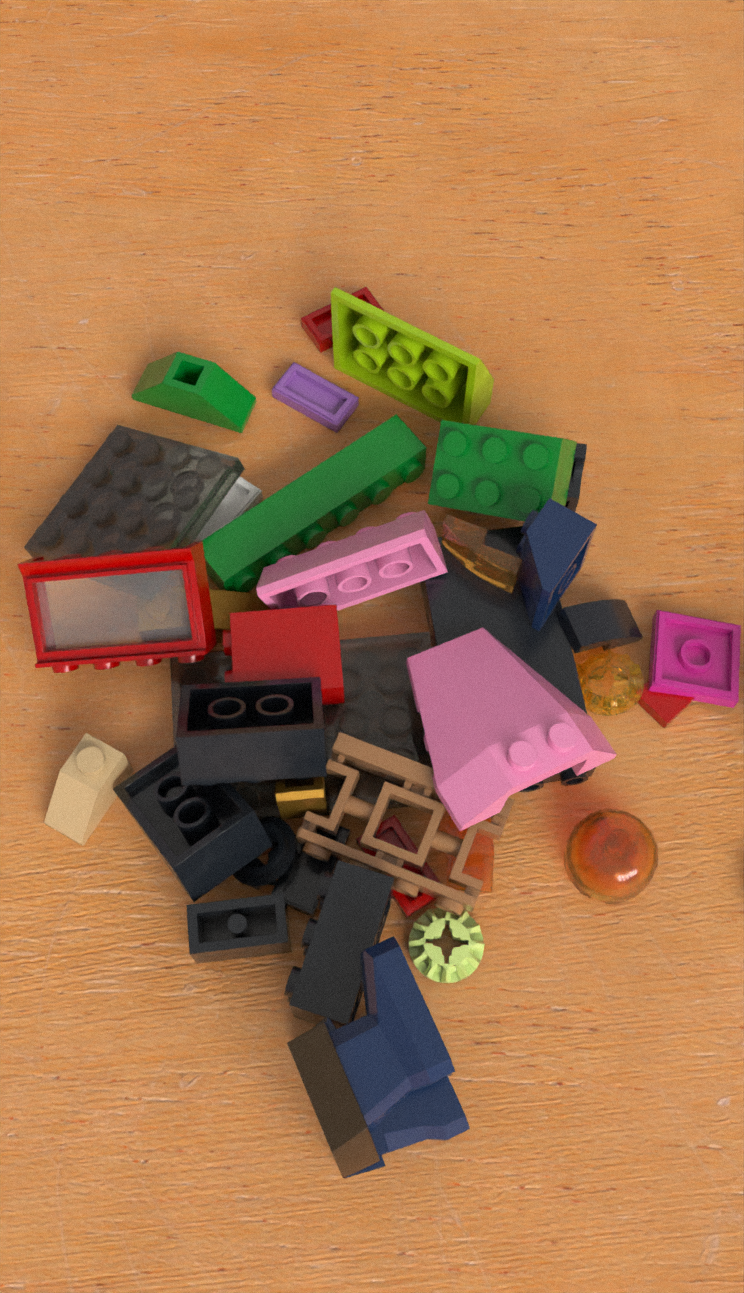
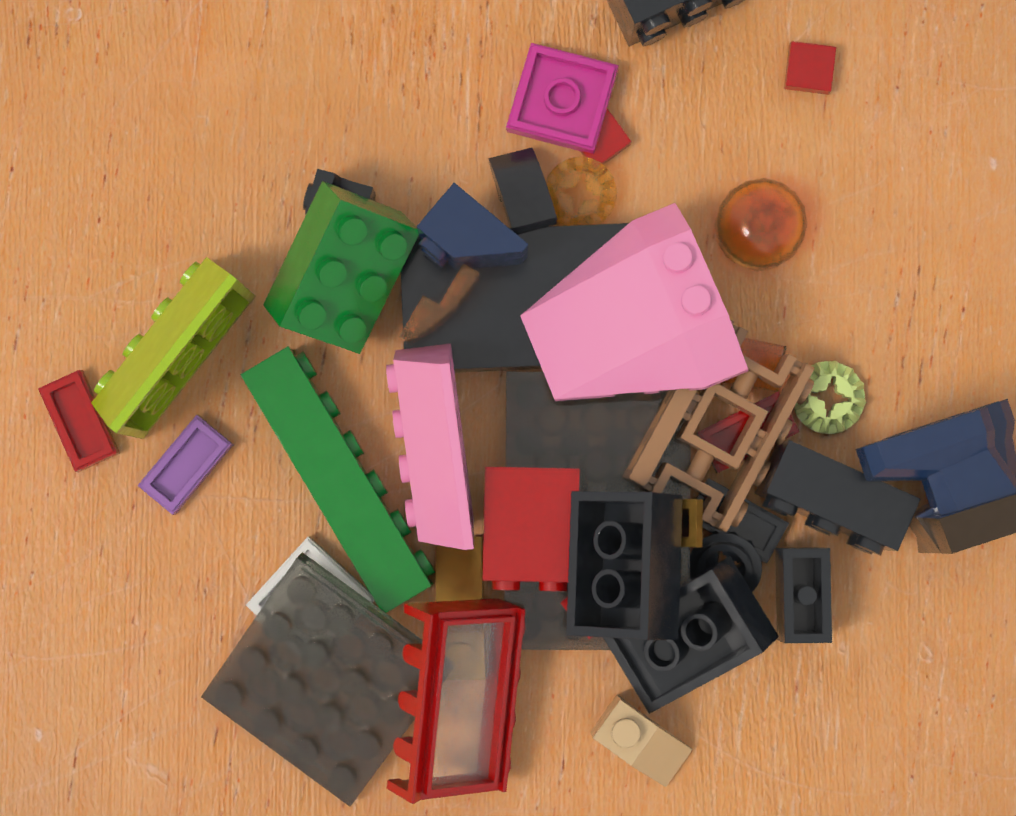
camera: 85 degrees left, 20 degrees up
(196, 391) = (171, 605): green slope -> none

